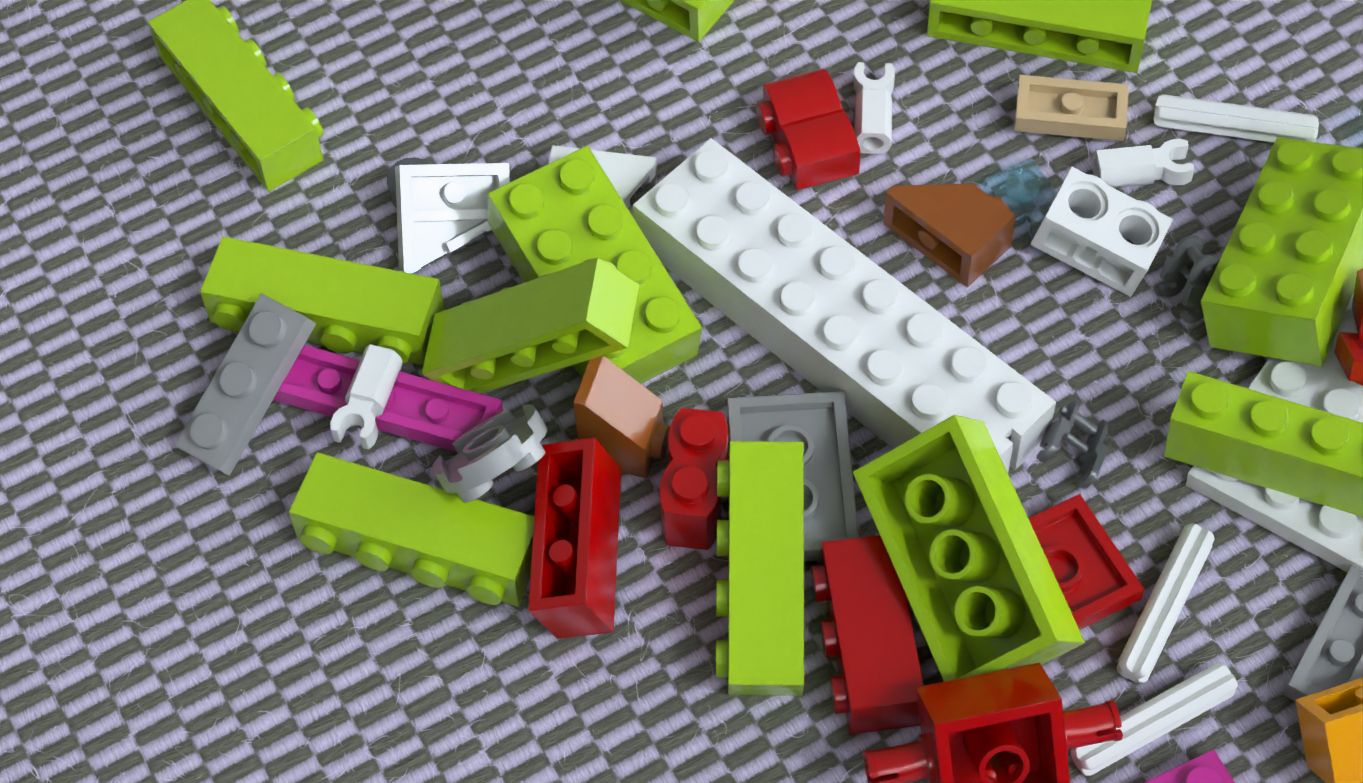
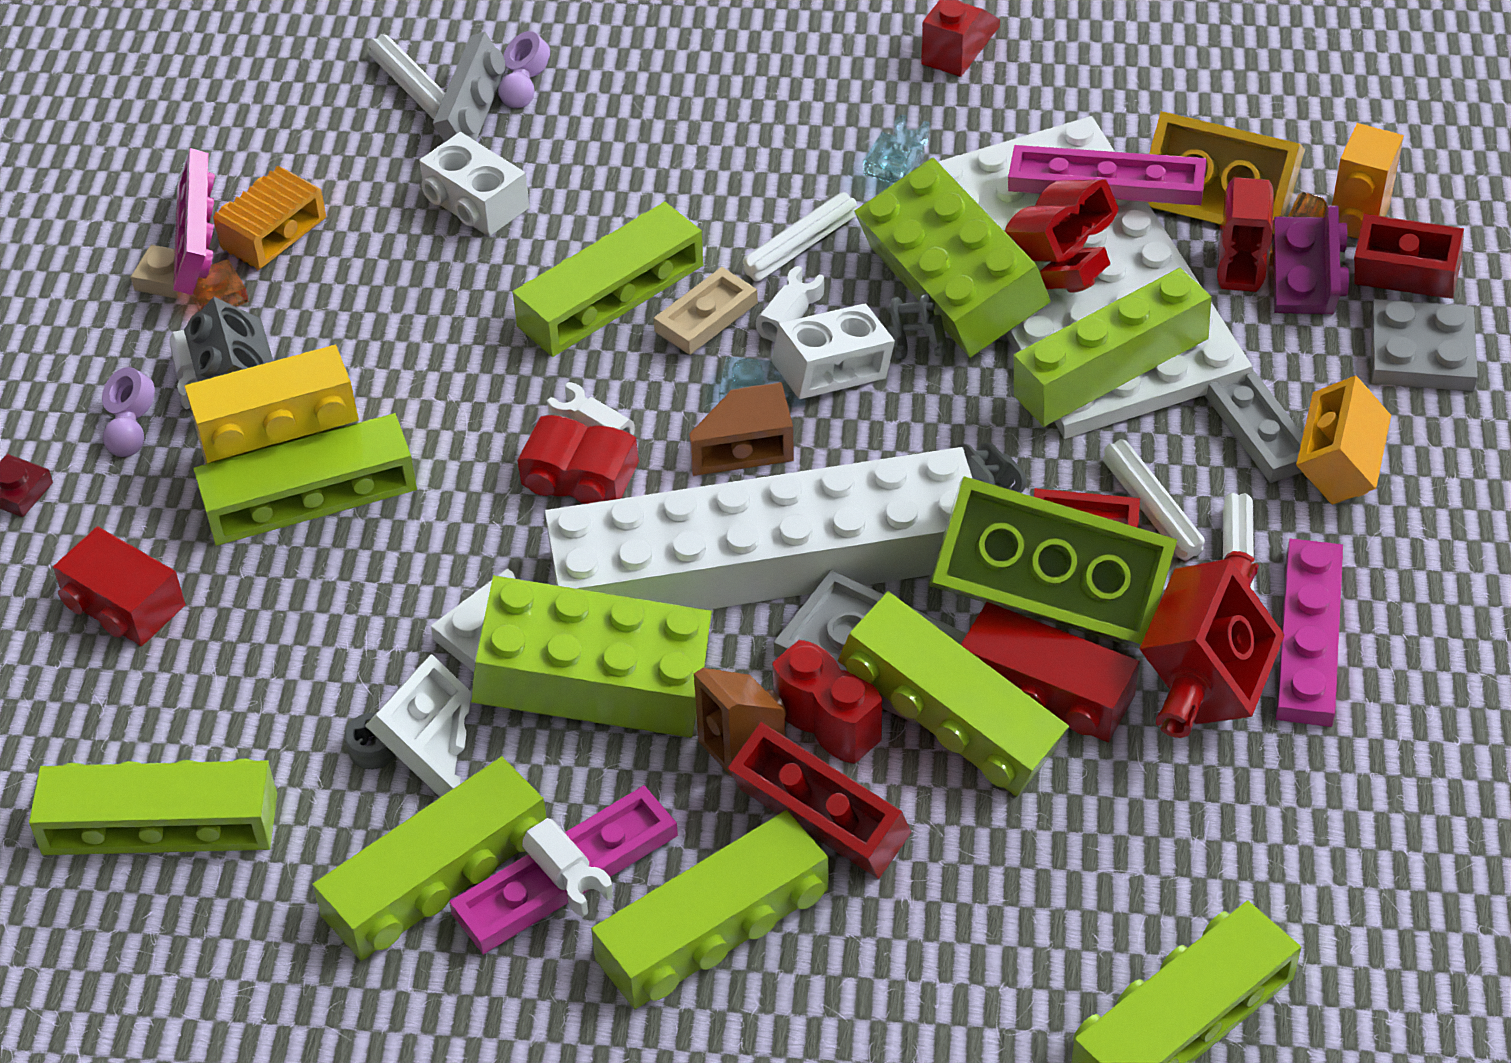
camera: 55 degrees left, 10 degrees down
(245, 384) = (470, 951): light grey plate -> none
(490, 451) = (708, 801): light grey plate -> none
(532, 328) = (626, 706): lime brick -> none

